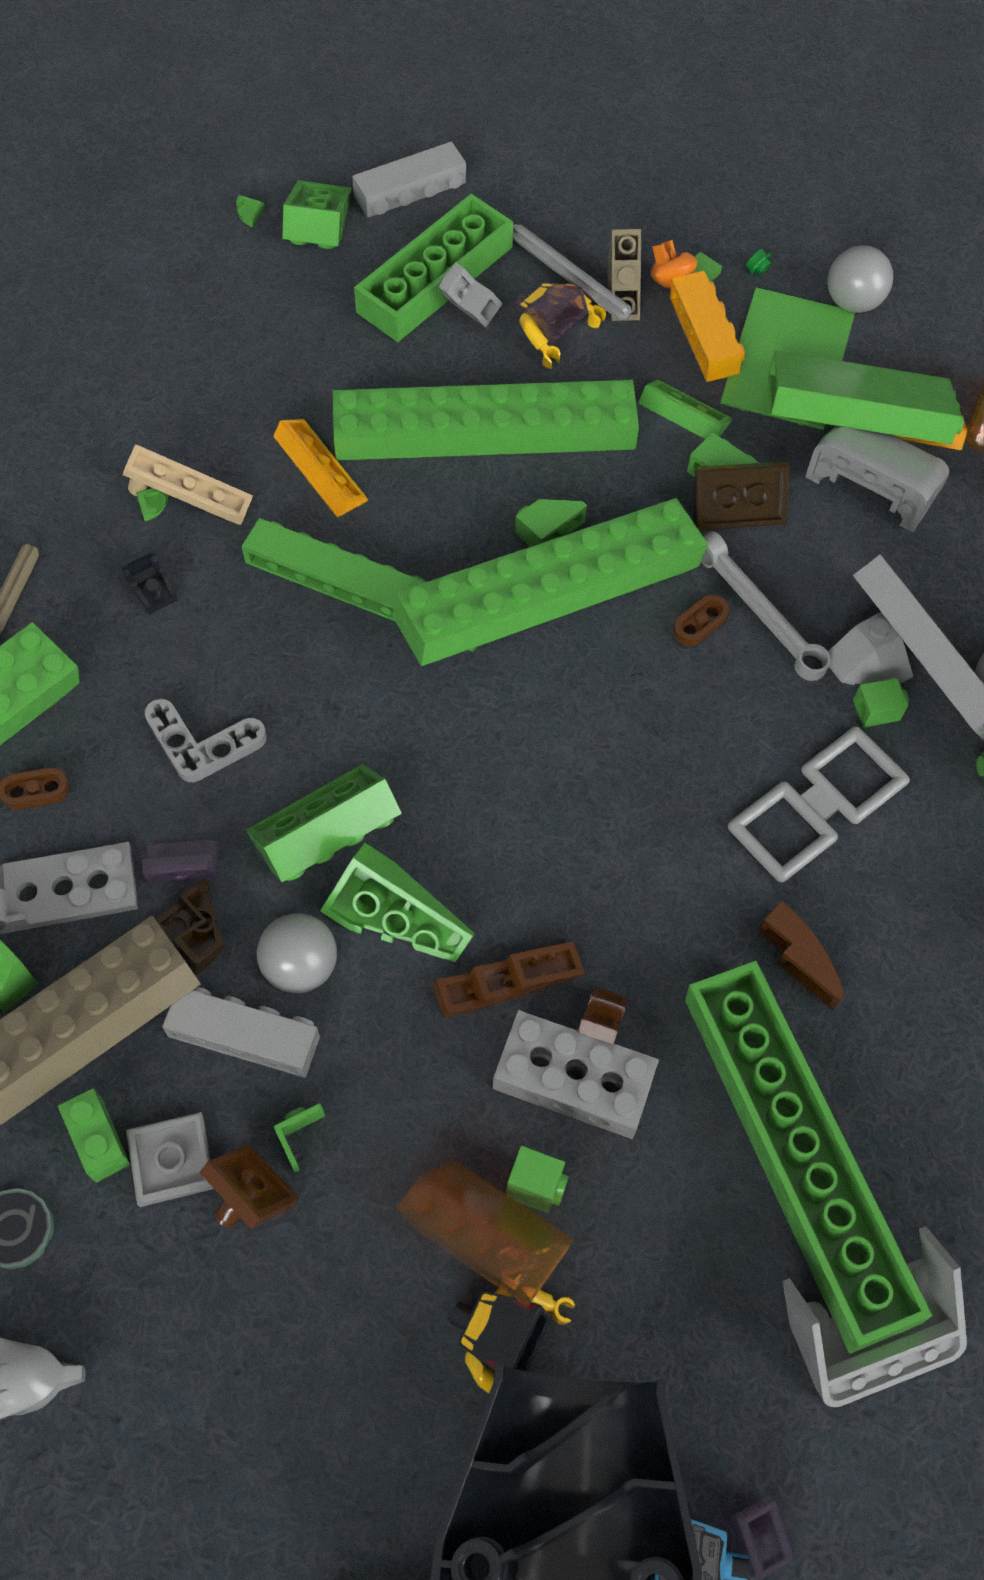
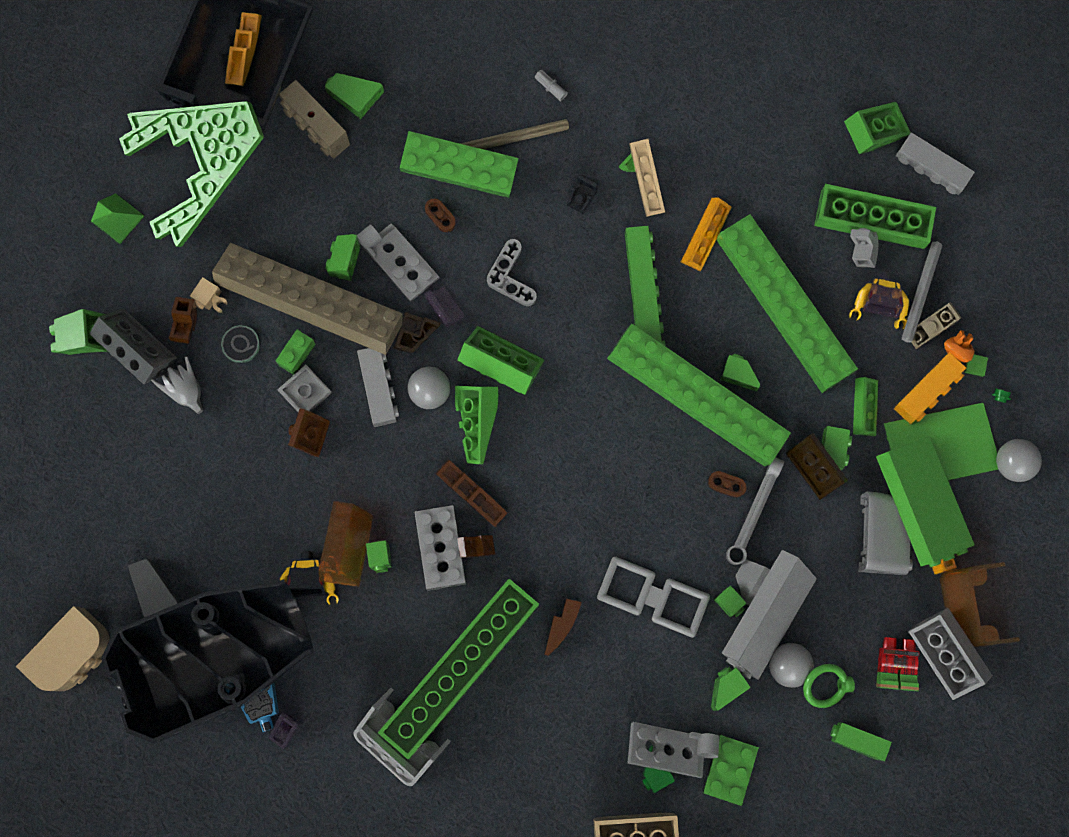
camera: 60 degrees right, 15 degrees up
(249, 209) = (857, 88): bright green tile -> none
(294, 1121) = (350, 434): bright green bracket -> none

